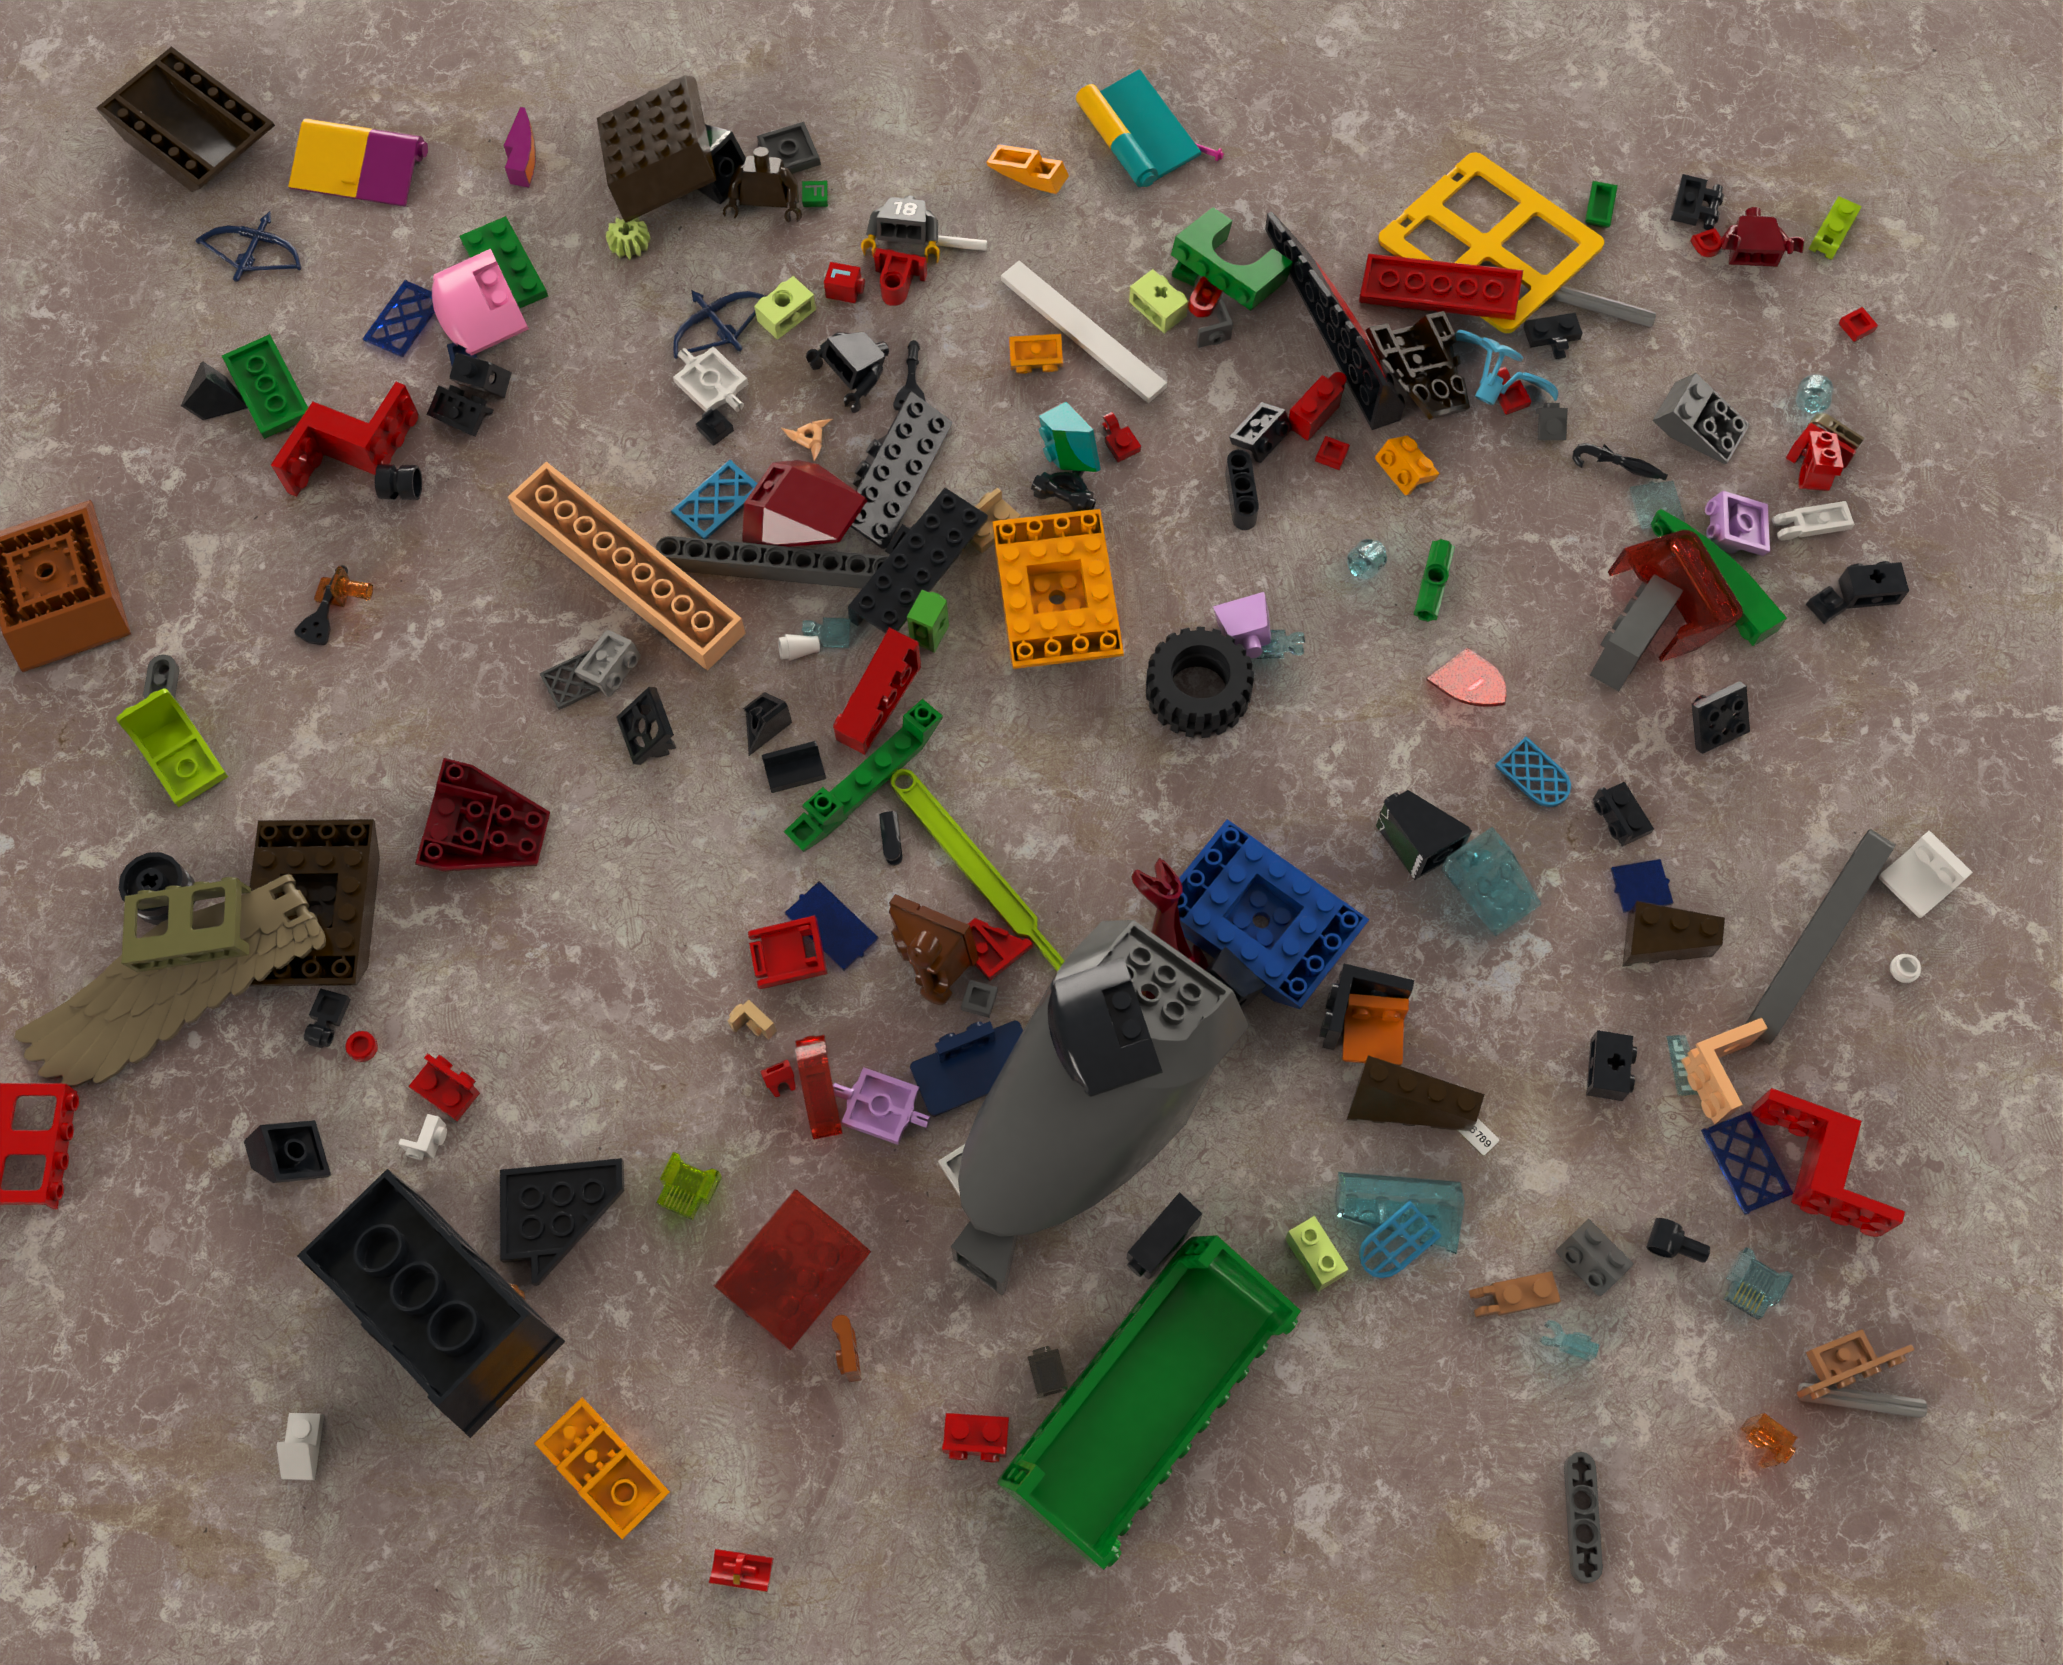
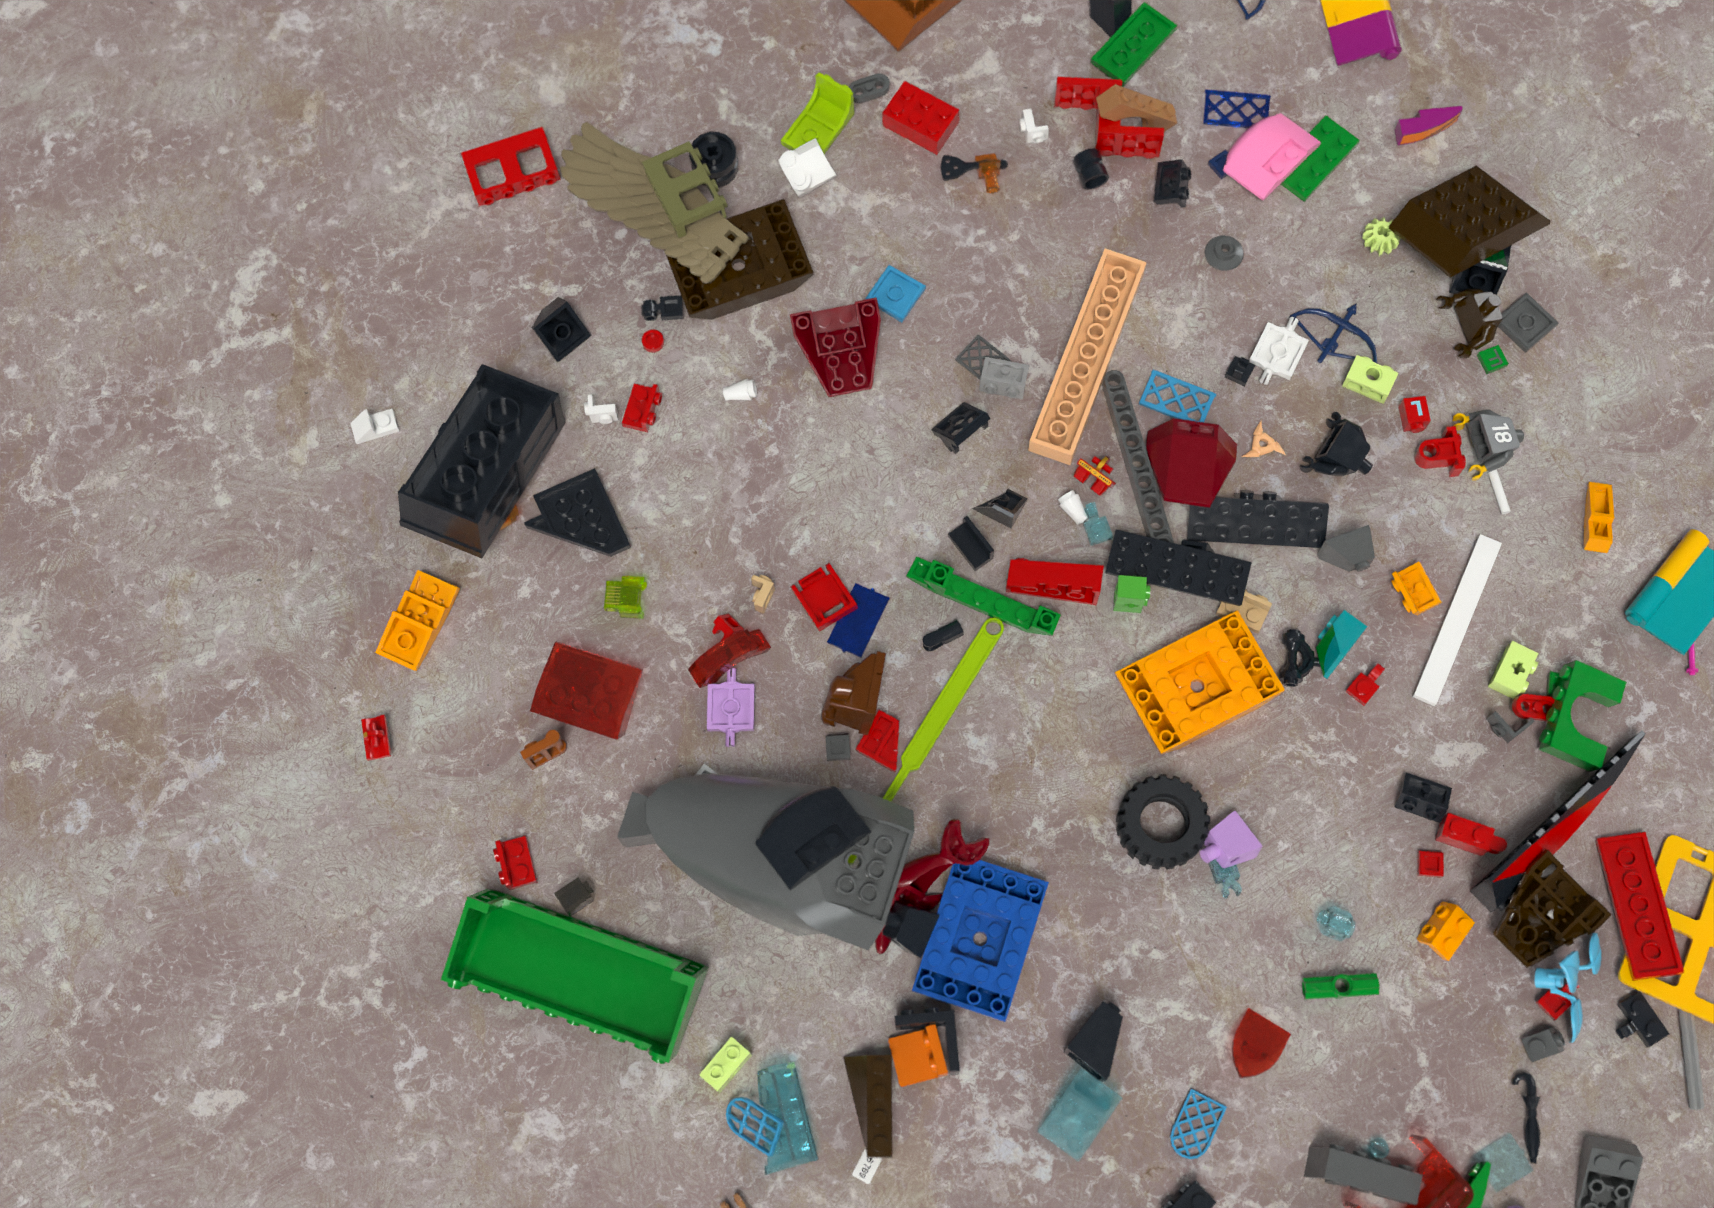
camera: 75 degrees right, 5 degrees up
(228, 784) = (806, 167): none -> white slope
(233, 637) = (920, 117): none -> red brick
(313, 527) = (1032, 133): none -> white bracket
(346, 404) = (1123, 103): none -> medium nougat arch
(441, 739) = (896, 293): none -> dark azure tile
(476, 373) = (1204, 177): black torso -> none
(481, 960) = (742, 390): none -> white cone
(567, 400) = (1224, 260): none -> dark grey piece
(781, 605) = (1085, 470): none -> red hips
(911, 385) = (1343, 503): black piece -> none
(964, 1065) = (780, 755): dark blue bracket -> none
(970, 394) = (1349, 550): none -> dark grey slope
(1164, 1237) = (698, 946): black slope -> none
(1241, 500) = (1365, 790): black beam -> none
(1614, 613) = (1374, 1152): none -> clear light blue hinge

